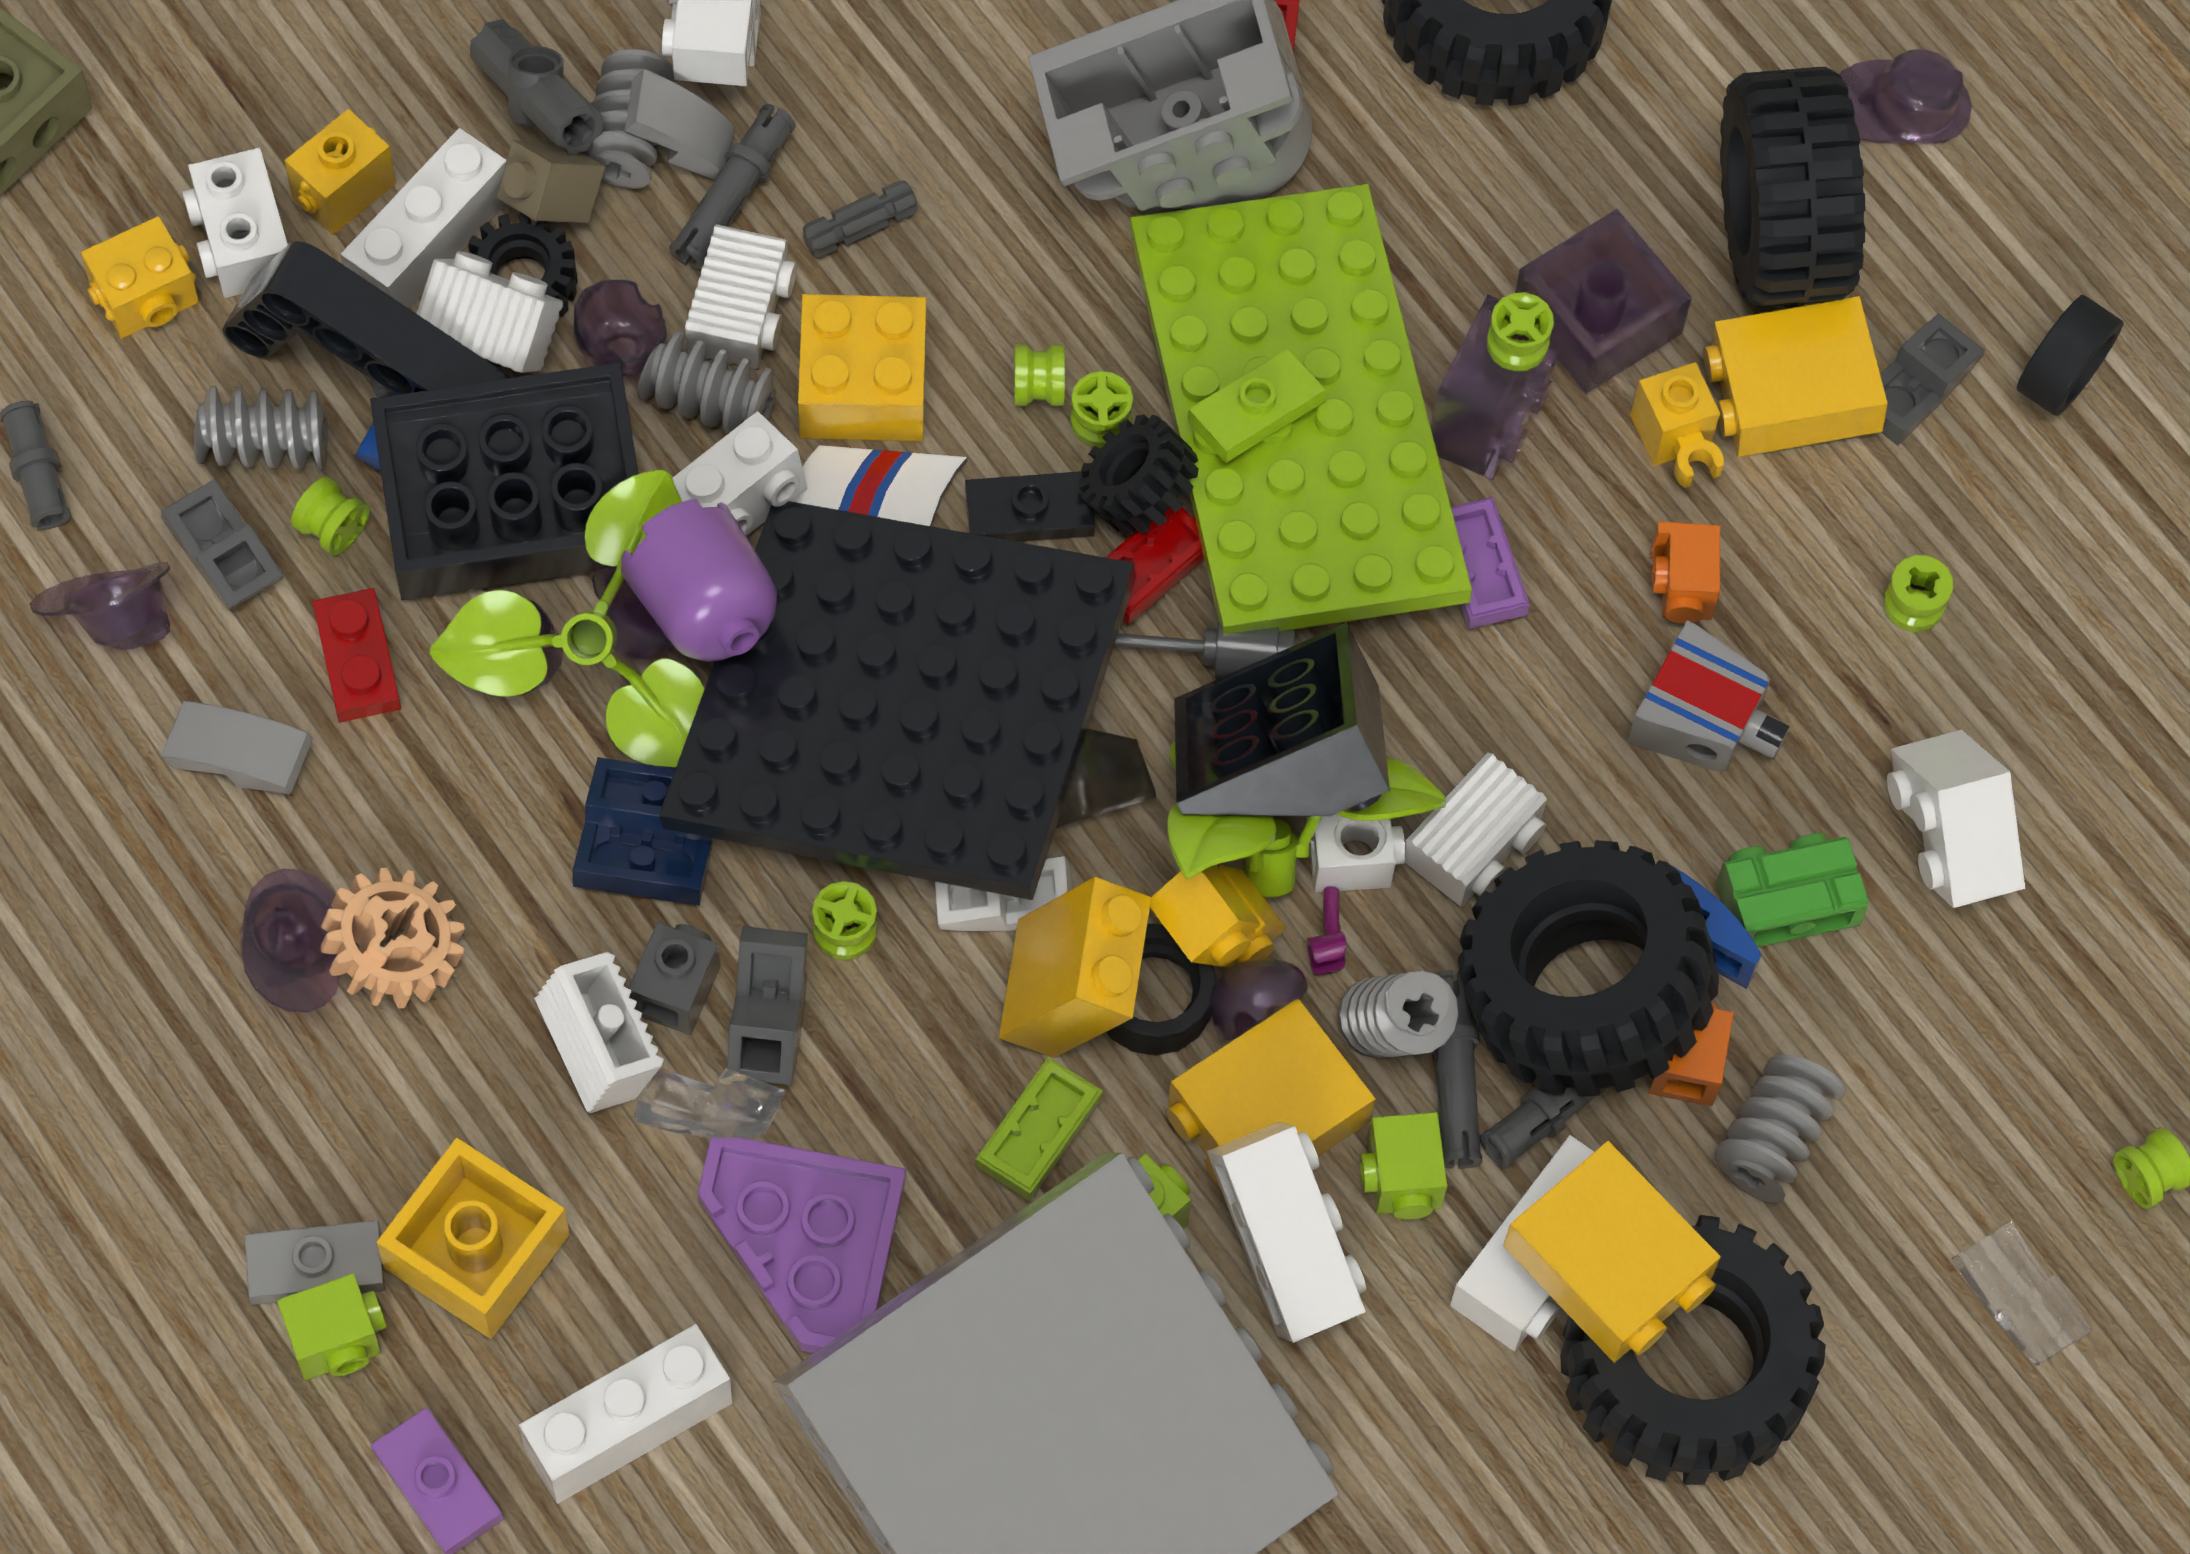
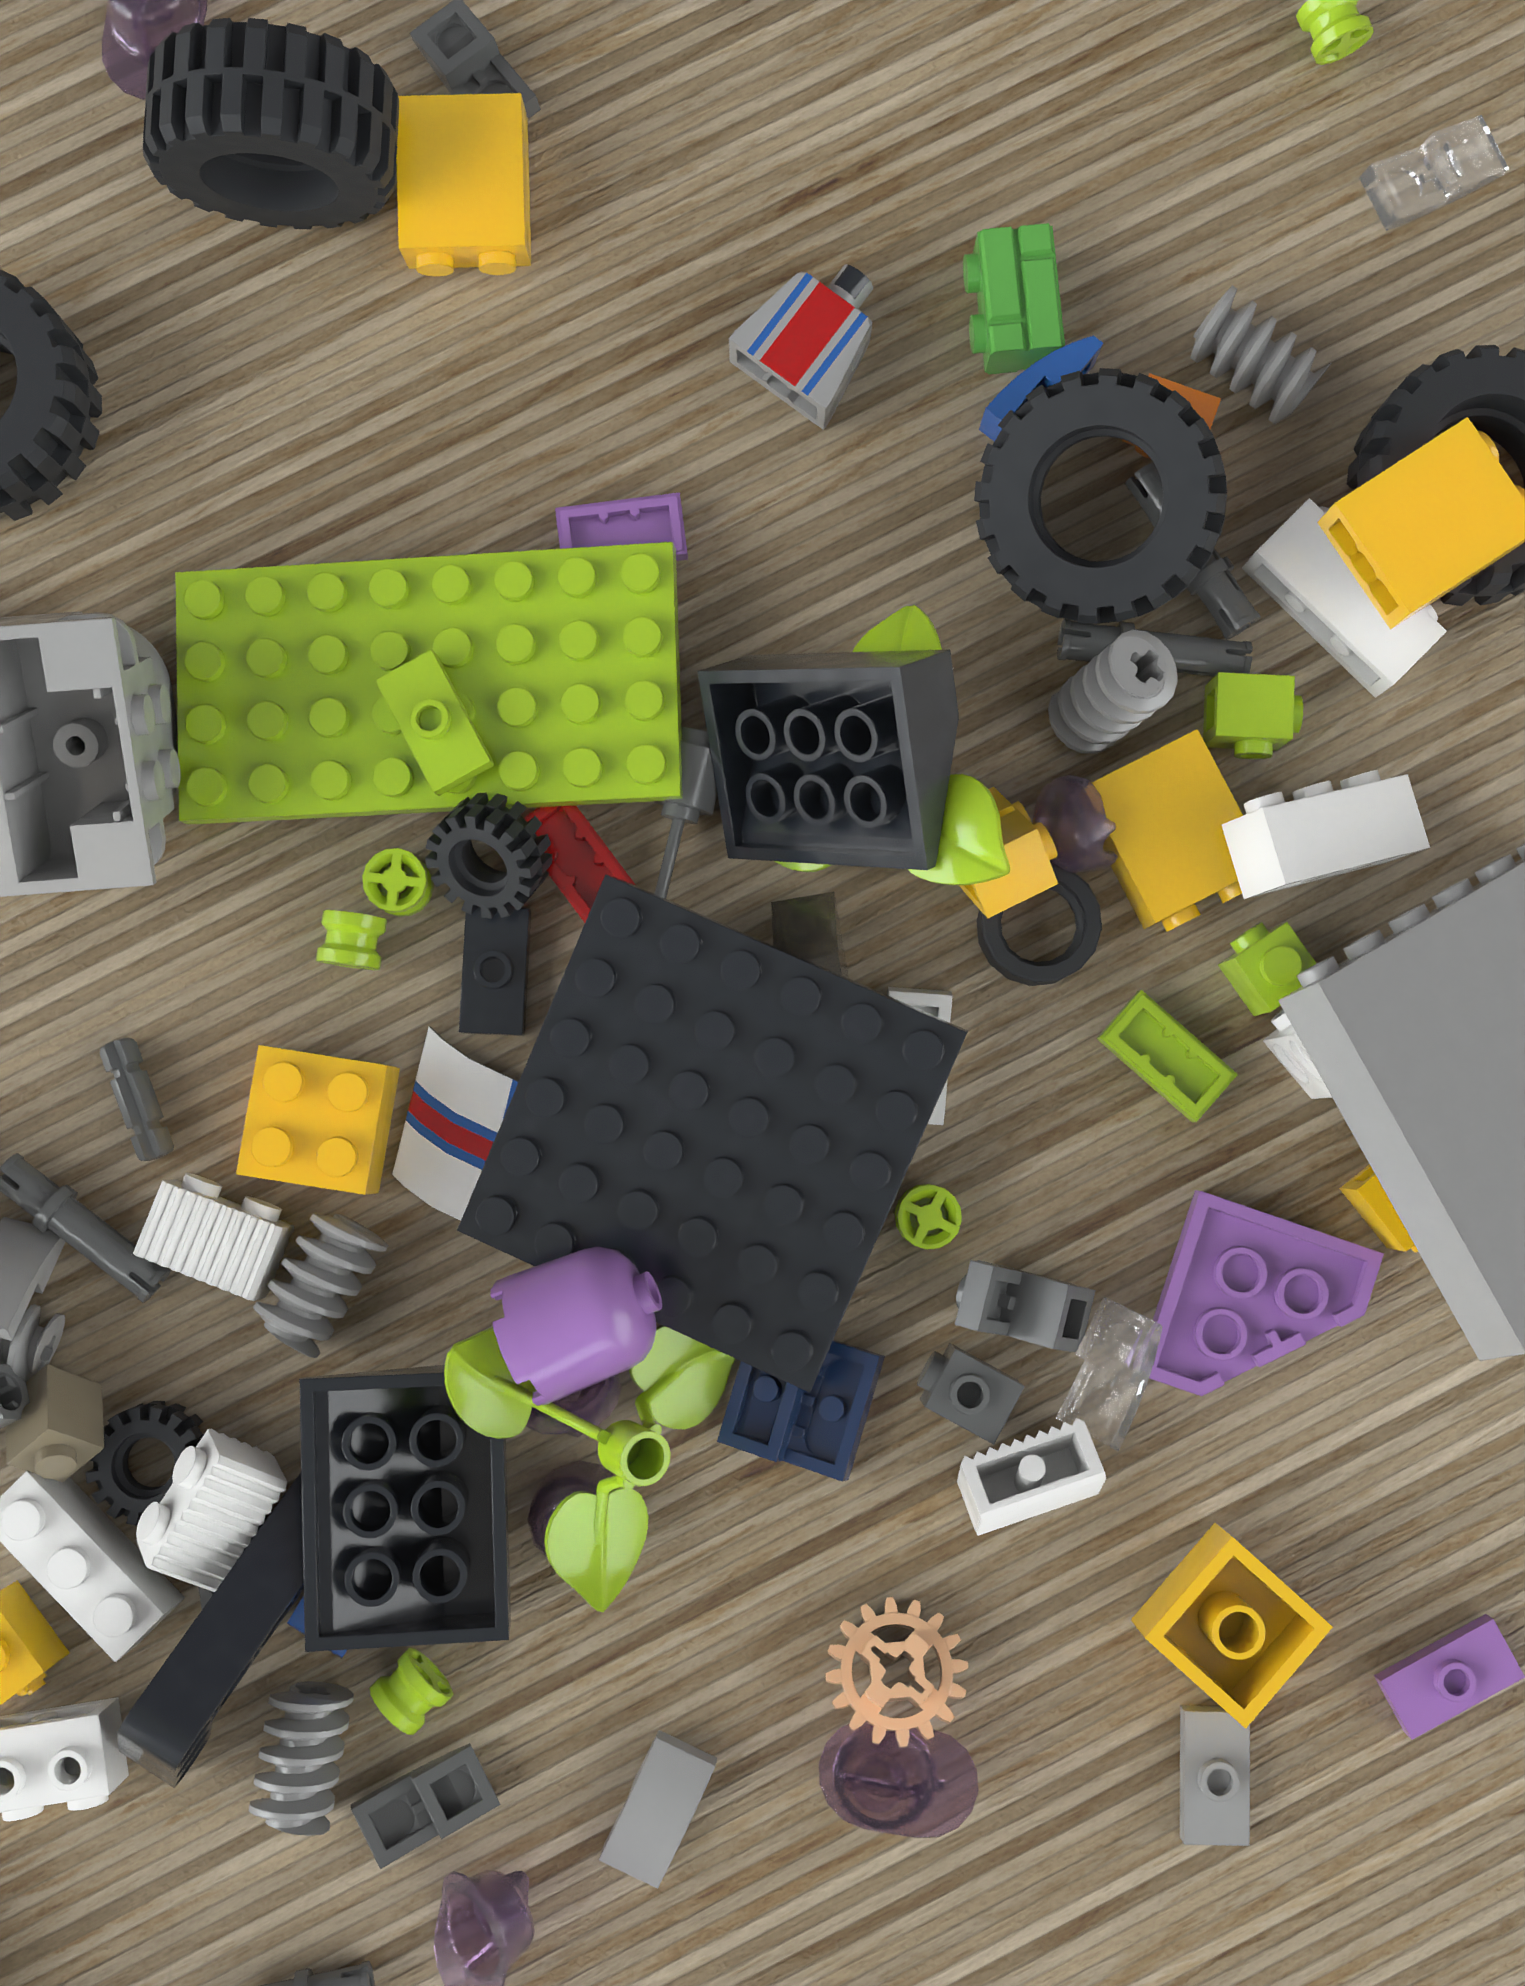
camera: 80 degrees left, 20 degrees up
(140, 277) = (99, 1871): yellow head -> none
(332, 1327) = (1295, 1769): lime brick -> none
(356, 655) = (566, 1674): red plate -> none
(617, 325) = (236, 1369): hair -> none
(626, 1413) = (1418, 1492): white brick -> none
(746, 473) = (440, 1268): white brick -> none
(1075, 967) = (1038, 997): yellow brick -> none
(1328, 951) = (1013, 747): magenta hand -> none
(1476, 832) = (904, 569): white brick -> none
(1484, 406) = (441, 480): brick -> none
(1520, 315) = (408, 417): lime wheel -> none
(1607, 299) = (354, 357): brick -> none
(1678, 421) = (494, 310): yellow brick -> none
(1686, 570) = (663, 332): orange brick -> none
(1913, 608) = (707, 131): lime wheel -> none
(1965, 815) = (965, 113): white brick -> none

